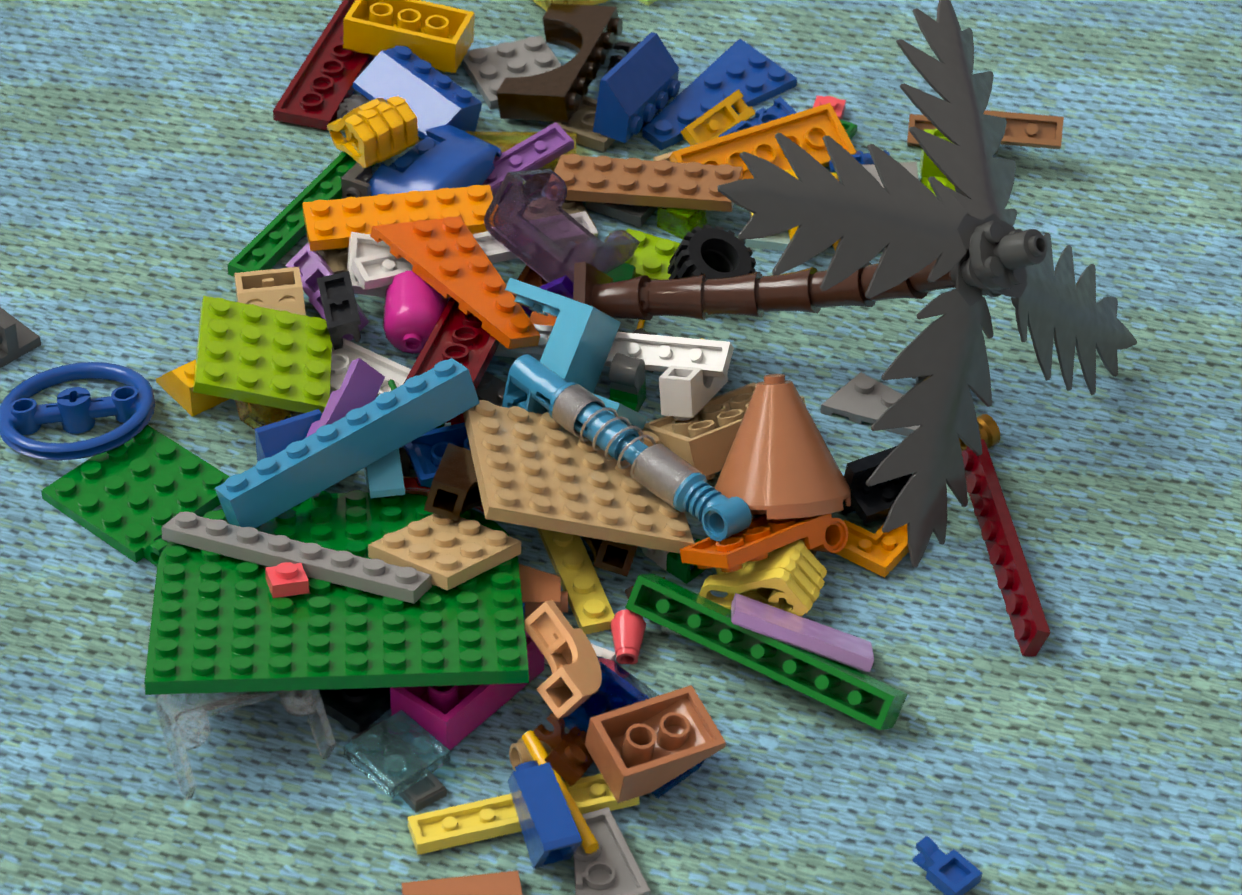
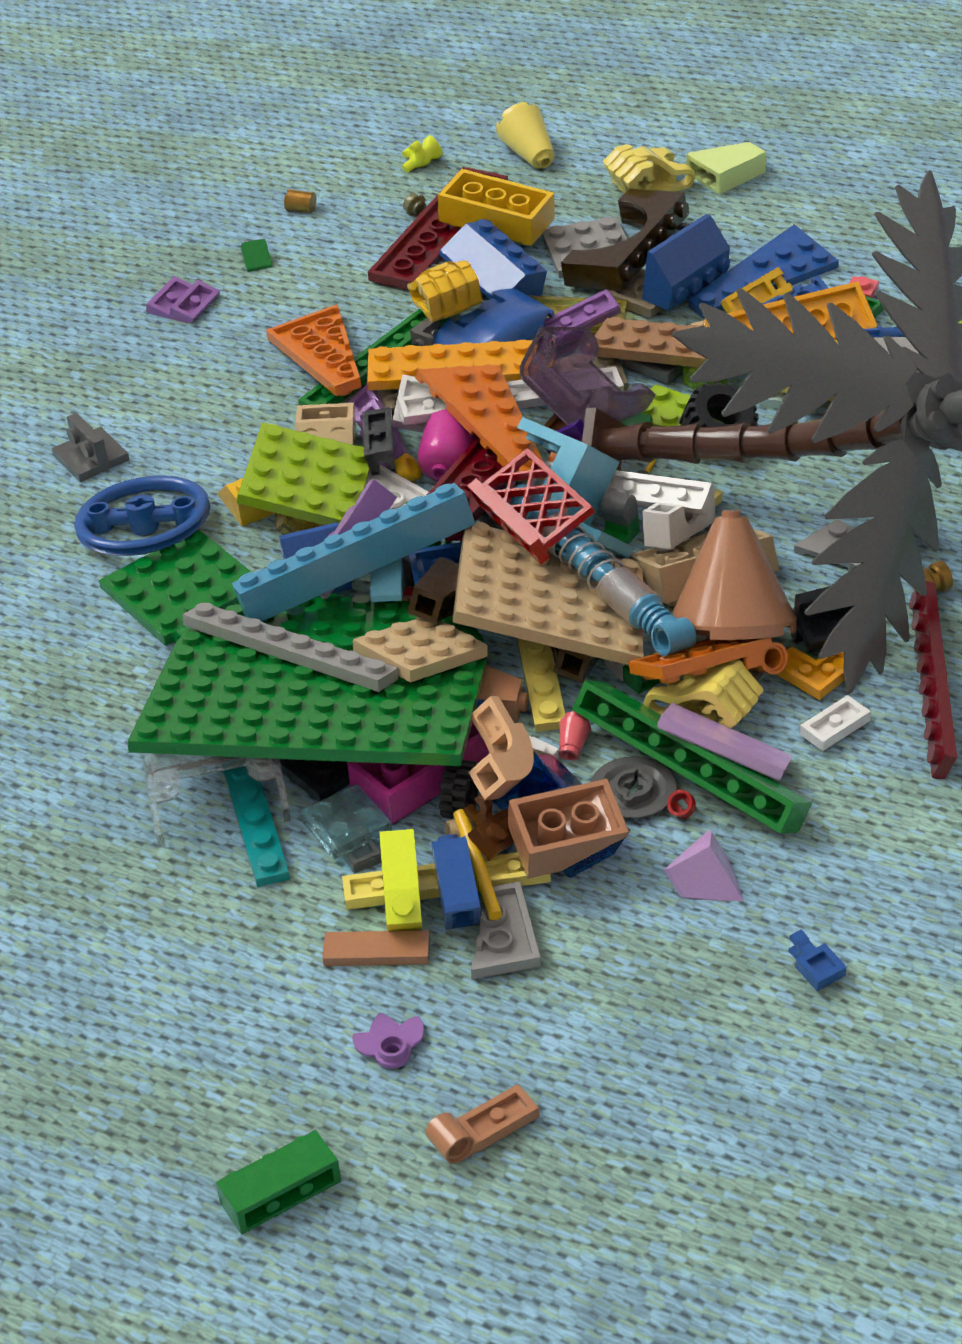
camera: 15 degrees right, 0 degrees up
(60, 152) = (182, 300): none -> medium lavender slope
(136, 94) = (256, 255): none -> green slope
(173, 28) = (300, 201): none -> pearl gold piece
(241, 202) = (321, 348): none -> orange wing
(287, 580) = (274, 664): coral plate -> none
(293, 766) = (256, 827): none -> teal plate
(307, 28) = (414, 204): none -> olive plate
(372, 339) = (408, 468): none -> yellow tile
(480, 818) = (400, 880): none -> neon yellow slope
(519, 709) = (457, 789): none -> black tyre
(526, 401) = (508, 515): none -> fence
(728, 684) = (654, 785): none -> dark grey gear
(771, 699) = (676, 809): none -> red hinge
(805, 780) = (704, 872): none -> lavender slope
(908, 602) = (835, 723): none -> white plate

